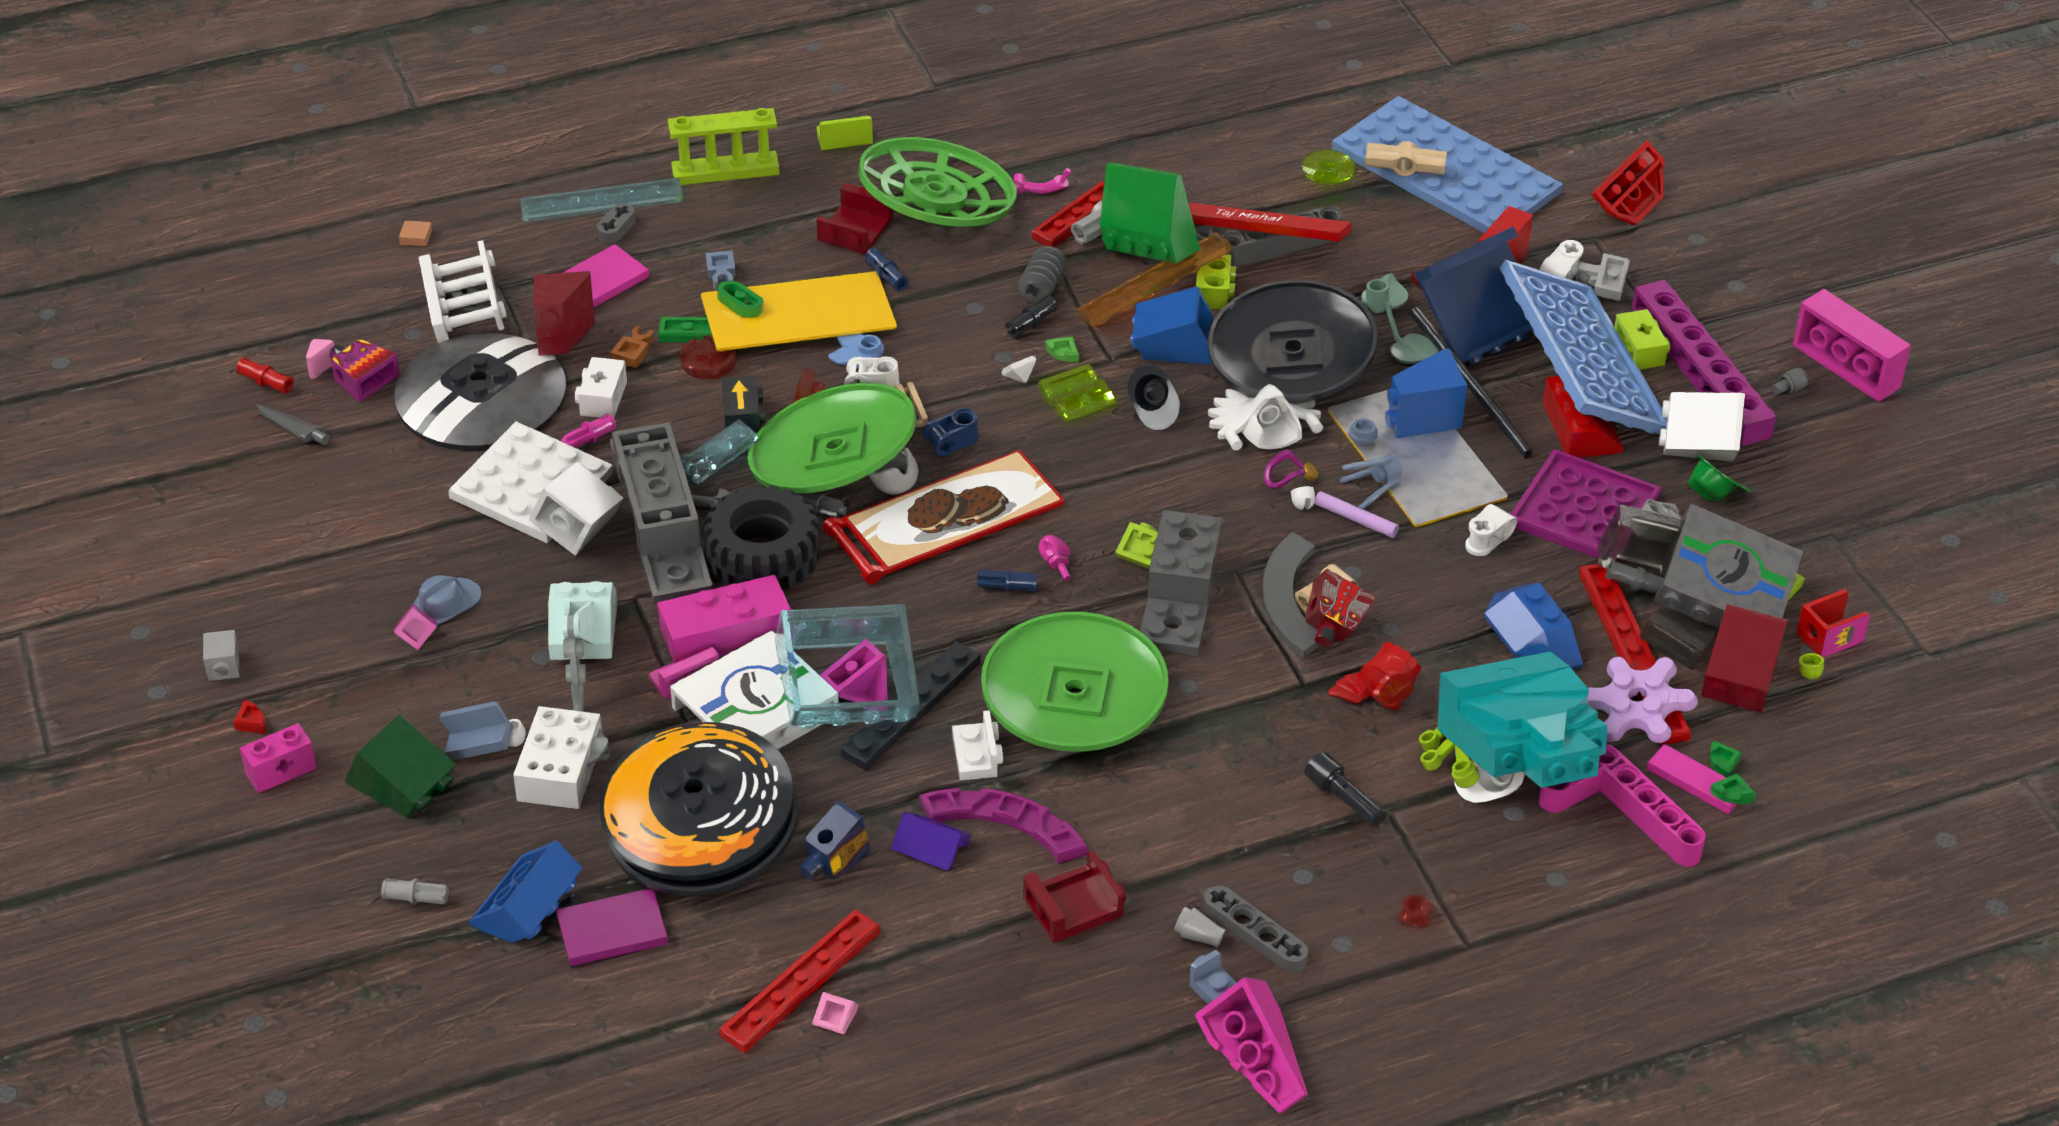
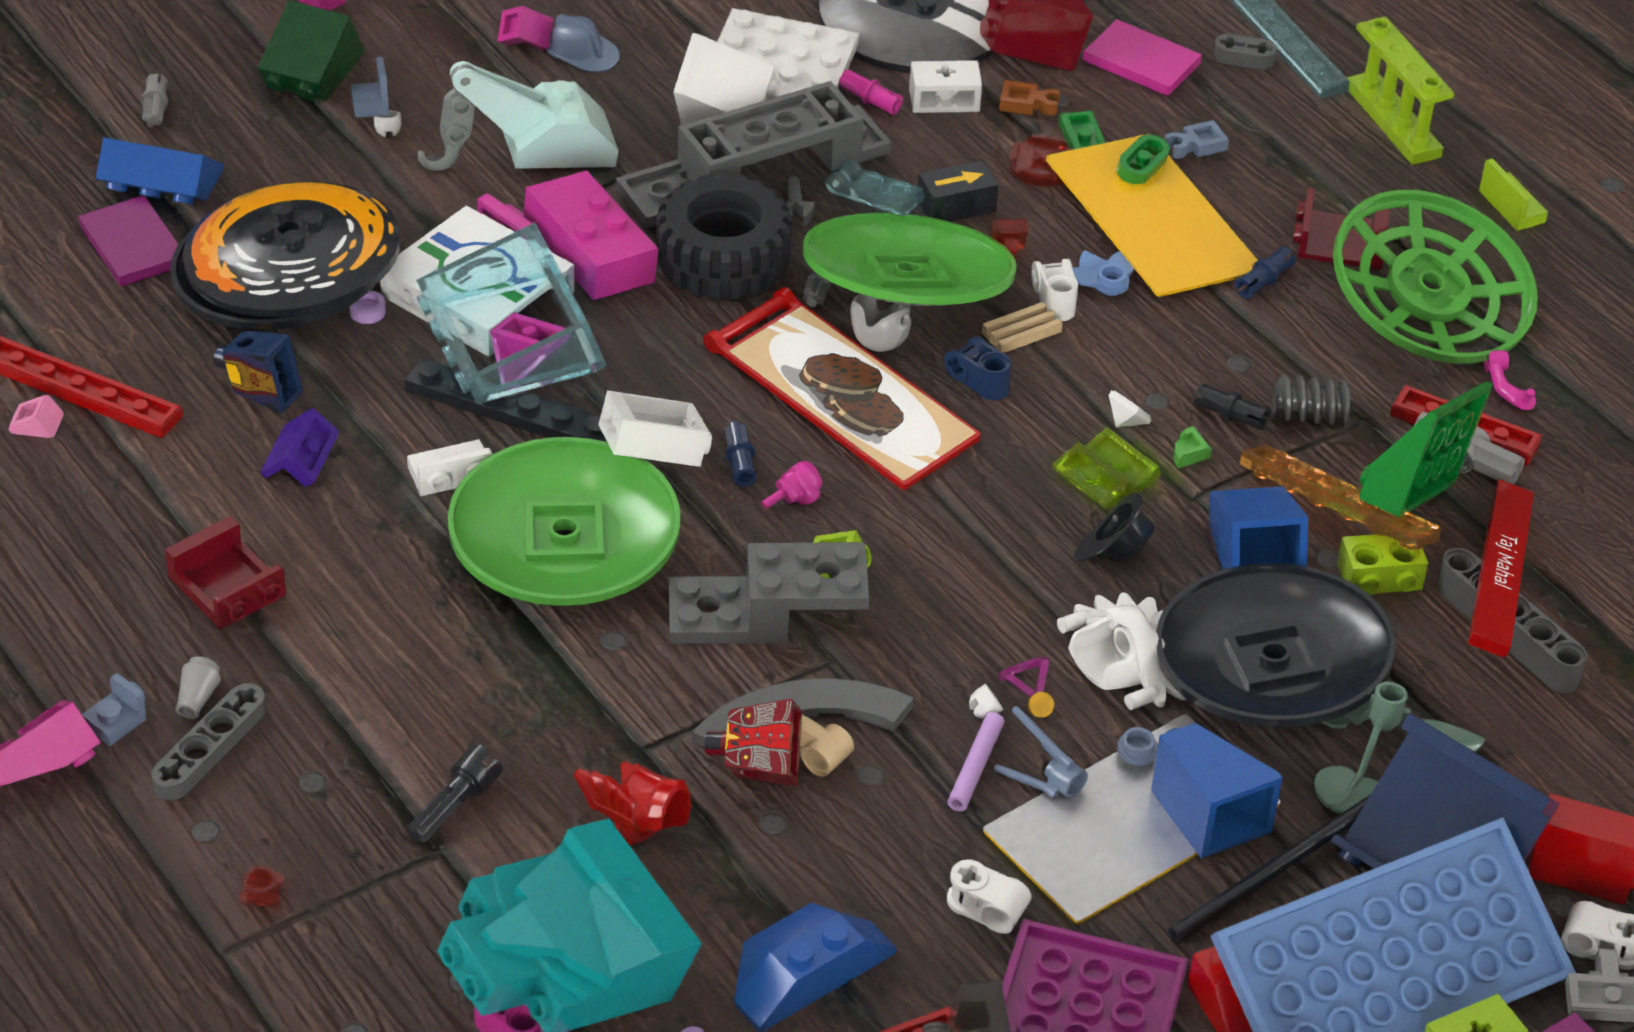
camera: 75 degrees right, 0 degrees up
(559, 757) = (356, 152): white piece -> none
(1003, 606) = (654, 429): none -> white window
(1010, 810) = (359, 516): magenta tile -> none

